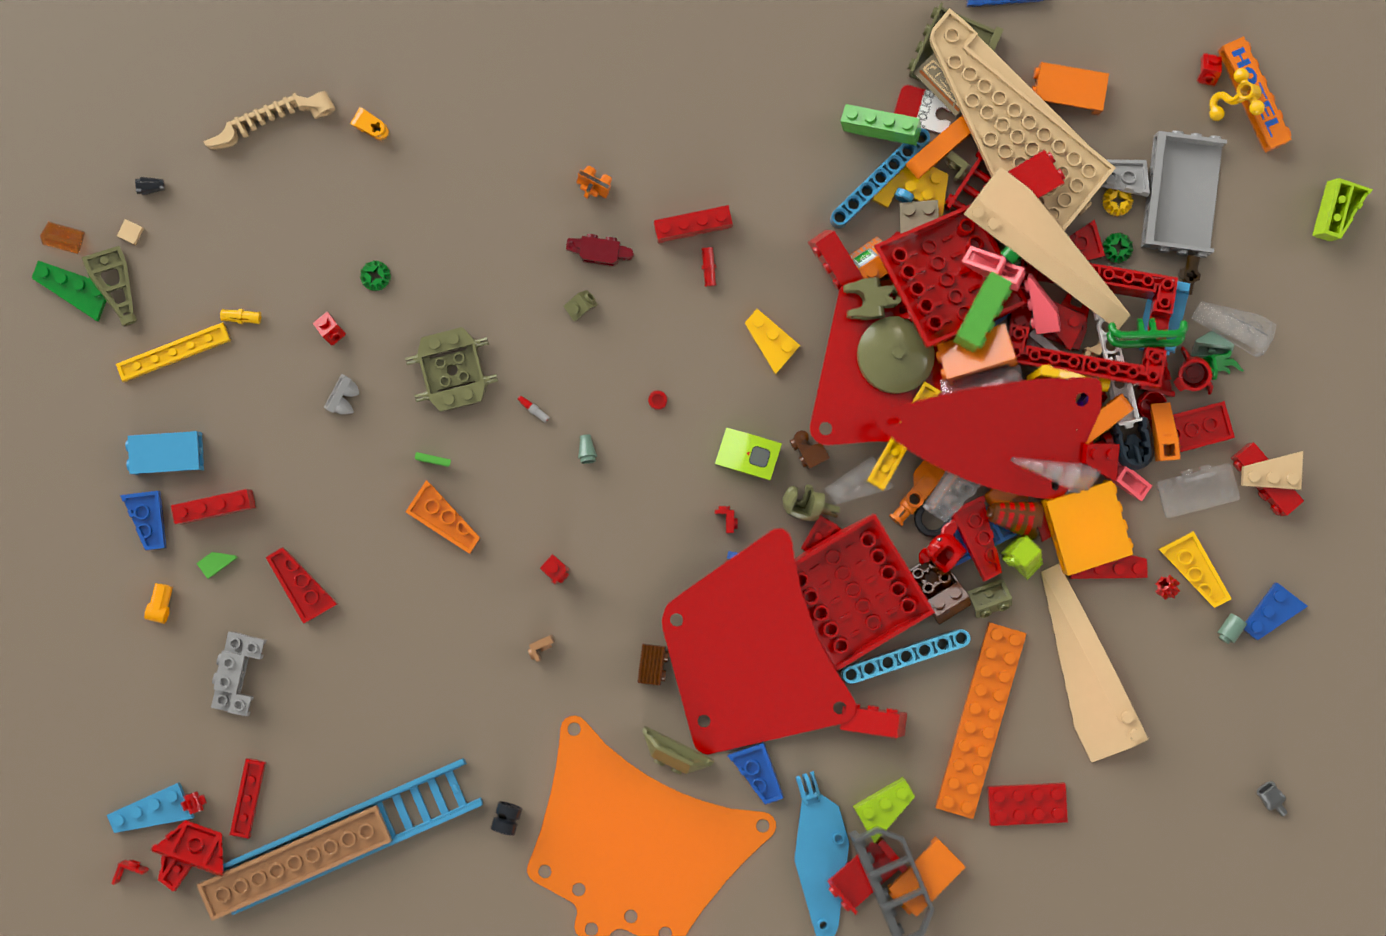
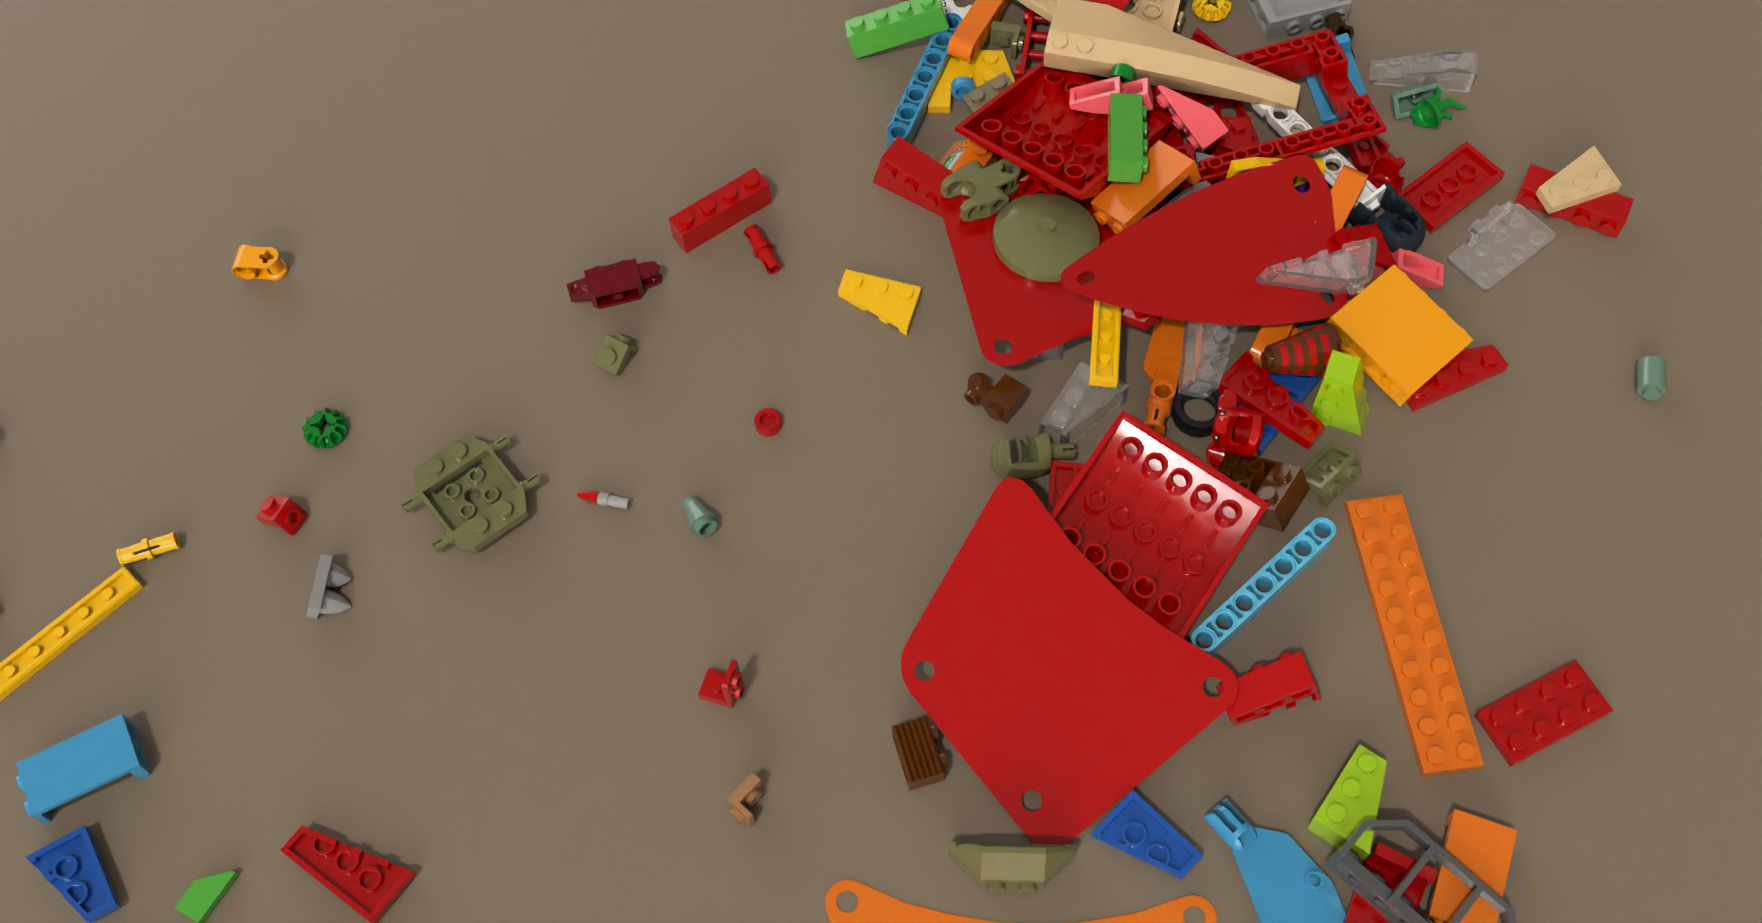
camera: 20 degrees left, 25 degrees down
(213, 506) = (176, 812): red brick -> none
(319, 104) = (69, 348): tan piece -> none
(432, 459) = (484, 614): bright green tile -> none
(437, 514) = (517, 684): orange wing -> none
(593, 185) = (575, 217): orange hips -> none
(731, 522) = (930, 514): red bracket -> none
(748, 454) = (919, 432): lime slope -> none
(1095, 694) = (1545, 531): tan wedge -> none
(1111, 252) = (1231, 41): green gear -> none
(1146, 338) = (1332, 93): green piece -> none
(1164, 432) = (1425, 194): orange slope -> none
(1167, 587) = (1540, 363): red gear -> none
(1194, 374) = (1413, 125): red piece -> none
(1194, 564) = (1557, 328): yellow wing -> none
(1273, 611) = (1685, 340): blue wing -> none

